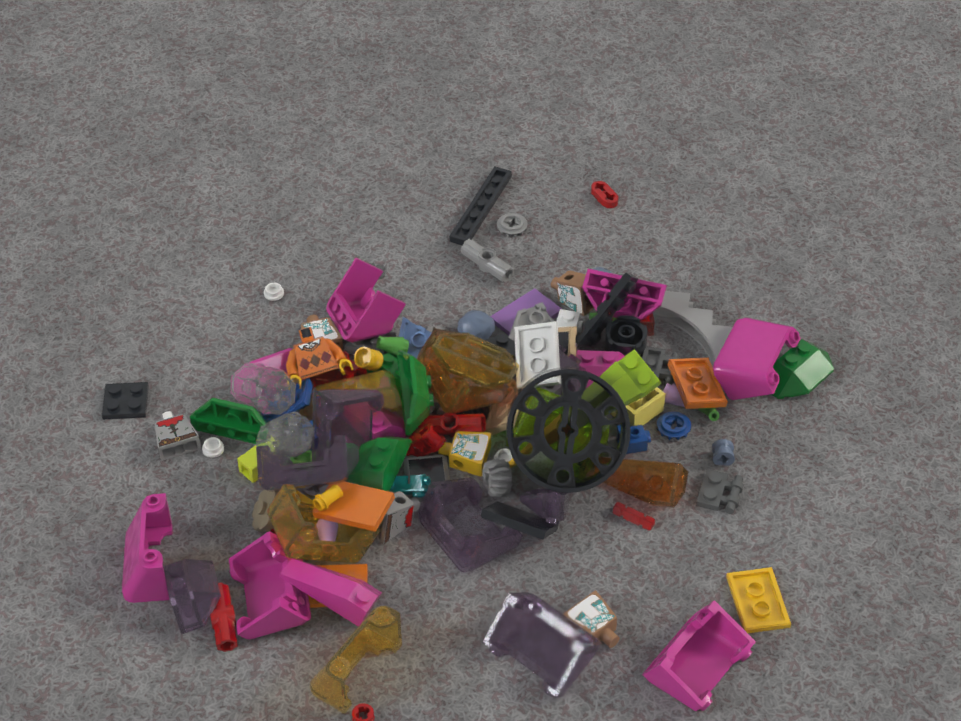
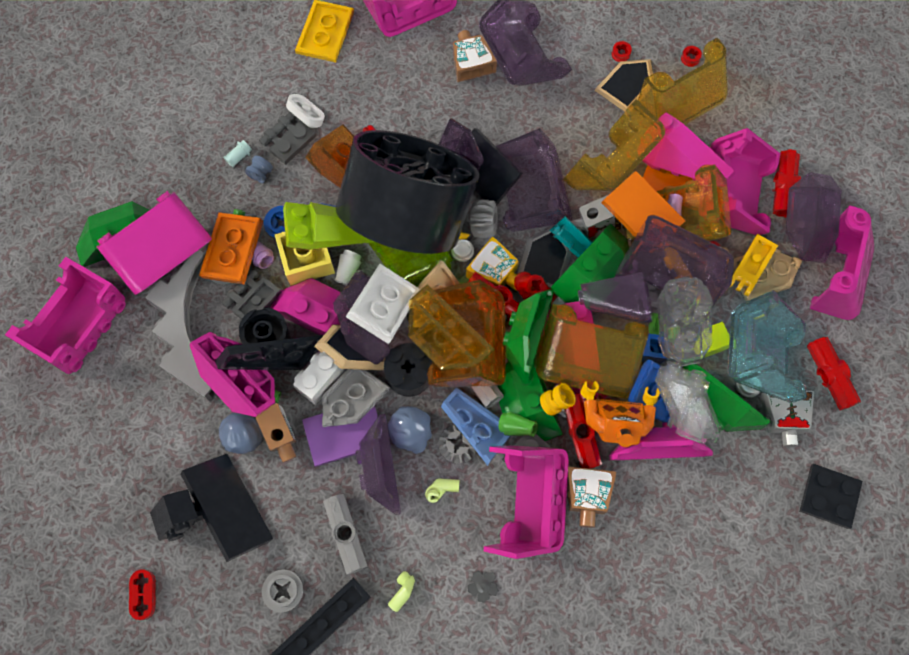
camera: 155 degrees left, 25 degrees up
(139, 475) = (834, 373): none -> red piece
(209, 453) = (760, 343): none -> clear light blue windscreen
(222, 537) = (777, 275): none -> tan tile
(236, 527) = (753, 263): none -> yellow hinge
(273, 292) = (616, 600): white plate -> none
(323, 500) = (675, 216): yellow pin -> none
(397, 547) = (634, 137): none -> clear yellow windscreen
(419, 663) = (625, 82): none -> black tile
(427, 247) = (404, 592): none -> yellowish green arm
(434, 308) = (439, 487): none -> yellowish green arm
(434, 688) = (621, 45): none -> red bush
(482, 293) = (378, 466): none -> clear purple wedge
(579, 243) = (226, 507): none -> black tile
(608, 225) = (174, 515): none -> black brick
(719, 514) = (305, 110): none -> white plate
(751, 464) = (237, 153): none -> light aqua pin
(783, 291) = (71, 318): none -> dark pink windscreen

